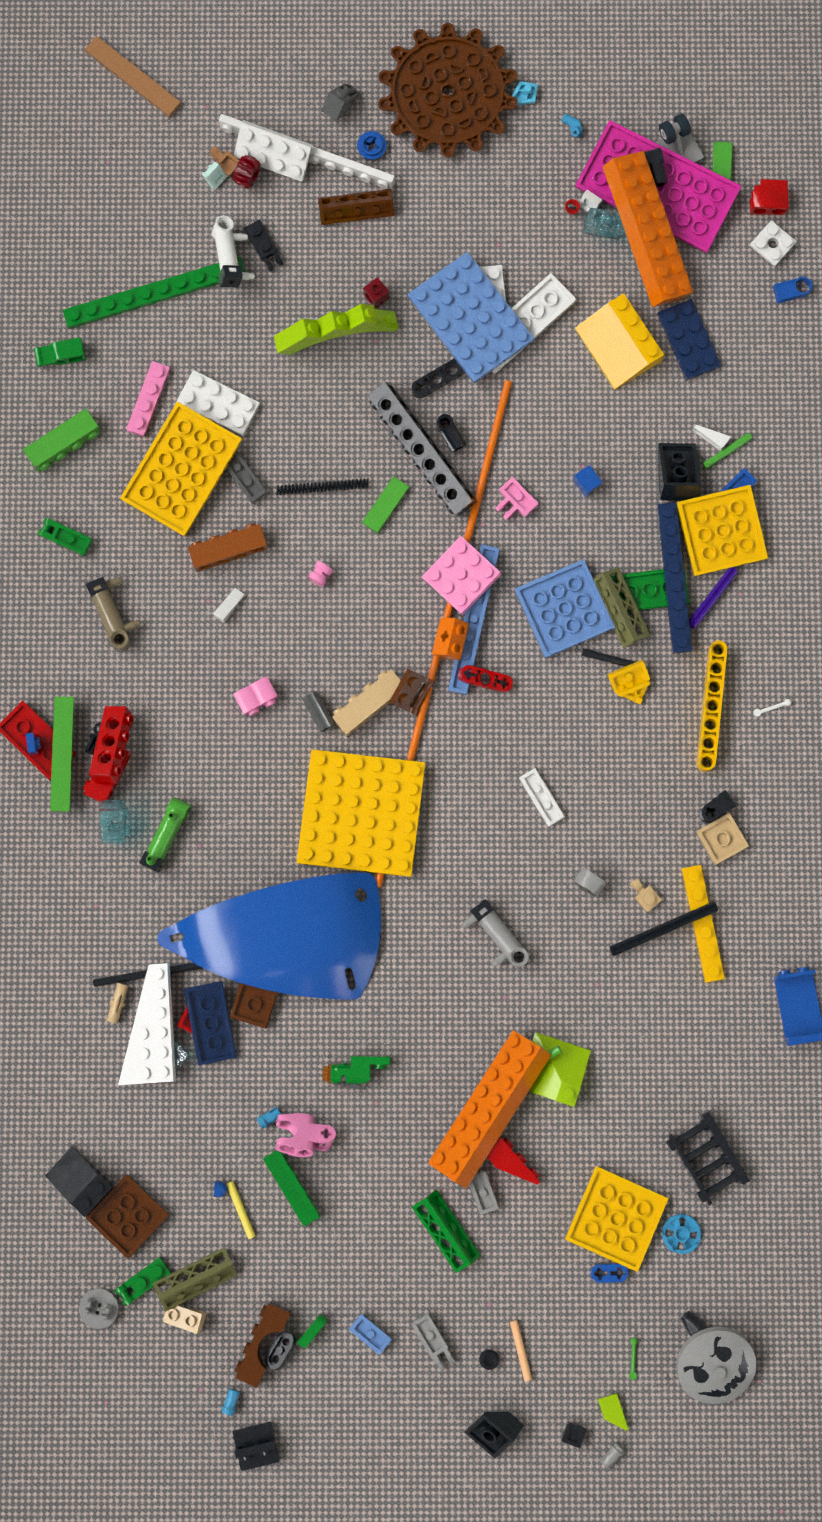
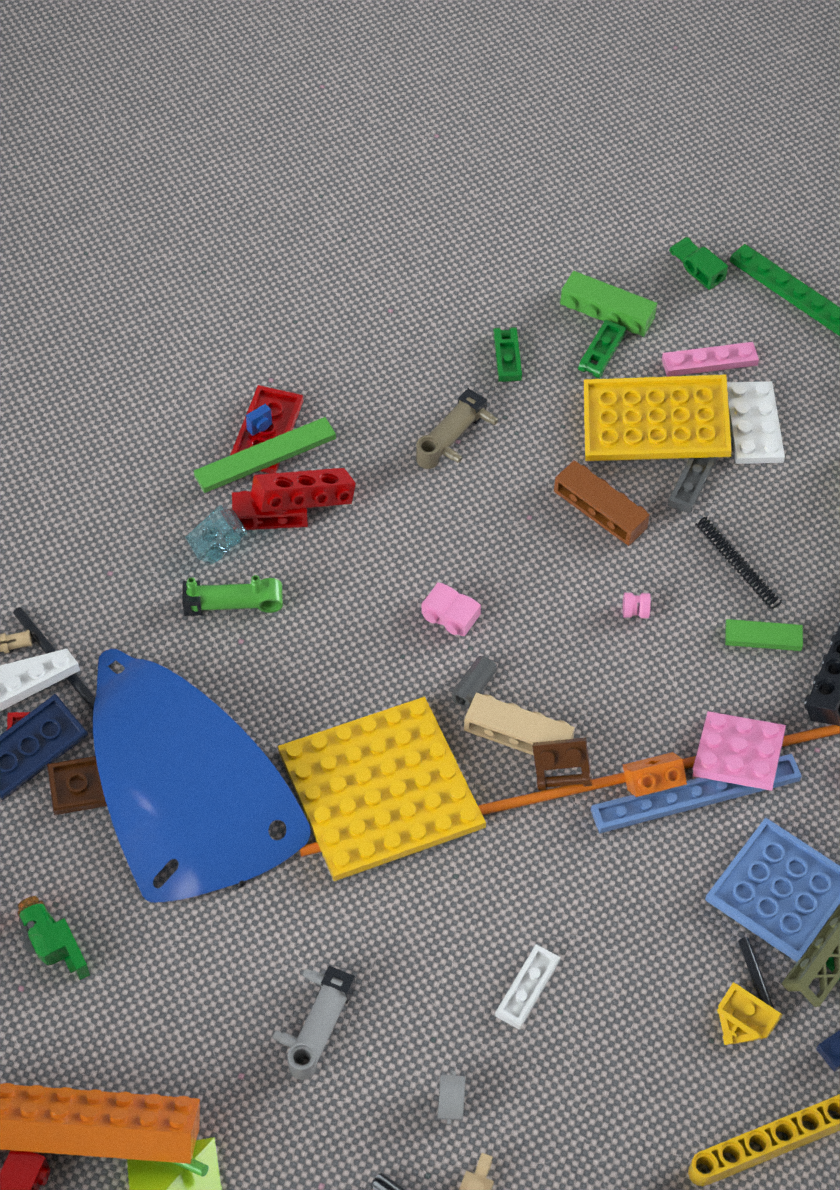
camera: 60 degrees right, 25 degrees down
(98, 467) = (602, 348): none -> green plate
(228, 605) = (536, 536): white piece -> none
(471, 680) = (646, 856): red beam -> none

